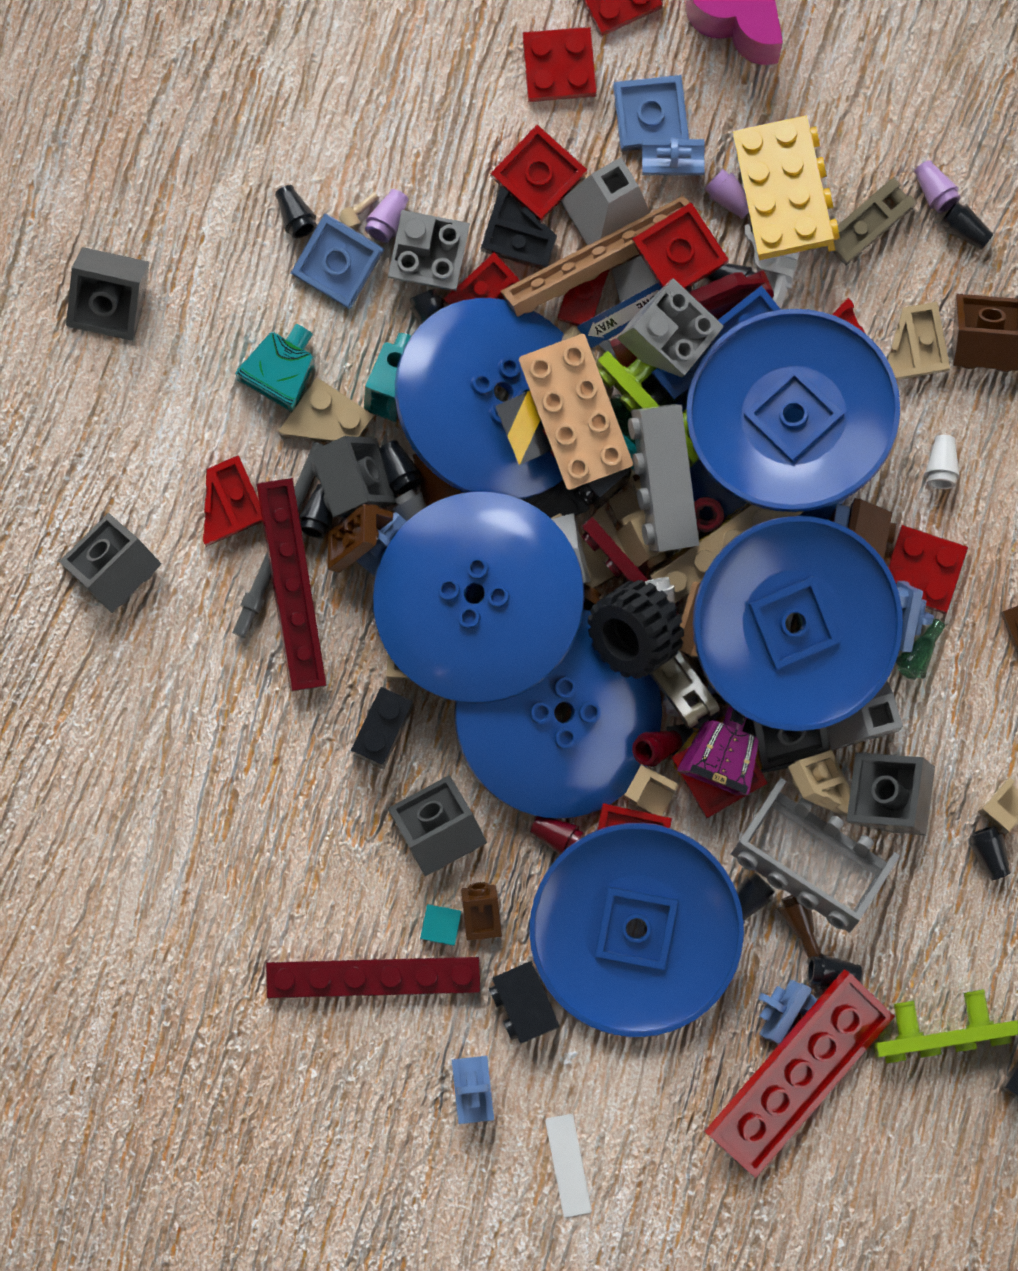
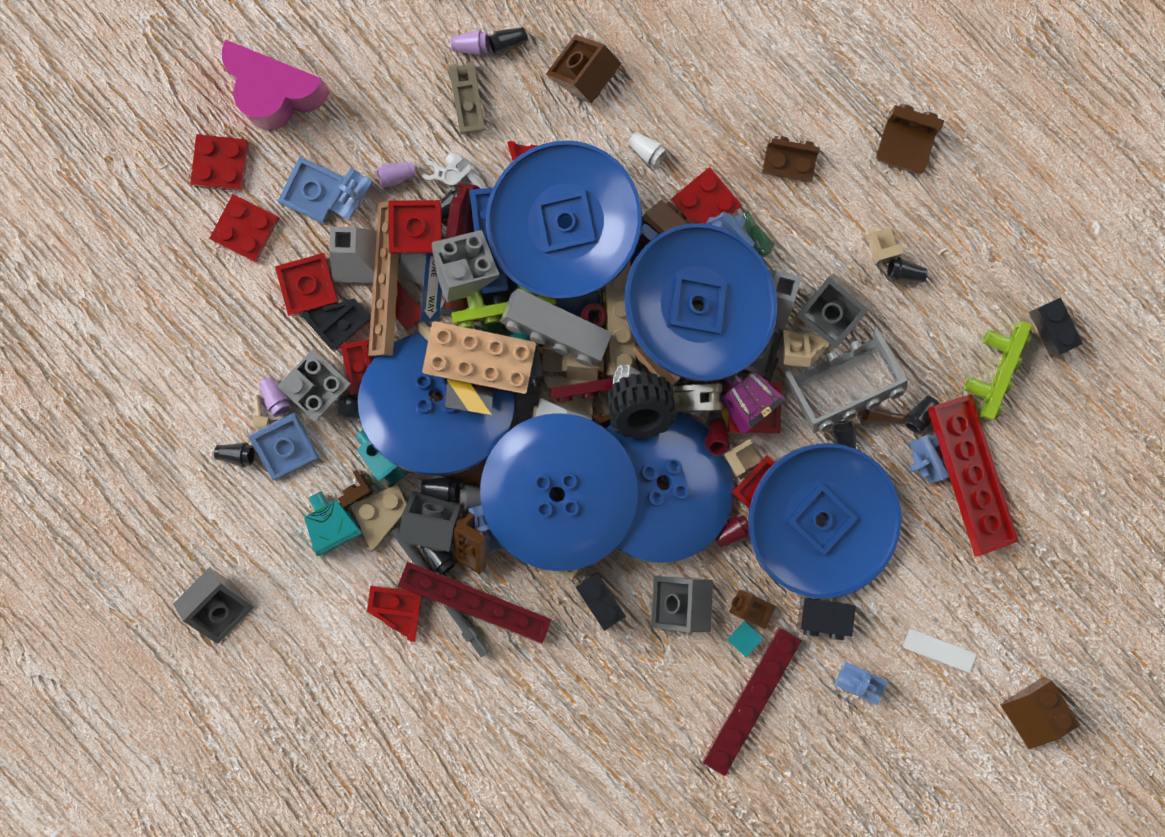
camera: 60 degrees left, 5 degrees up
(110, 562) = (389, 709): dark grey slope -> none
(333, 374) = (353, 493): none -> reddish brown bracket
(785, 187) = (414, 136): yellow bracket -> none
(919, 343) = (562, 115): tan wing -> none

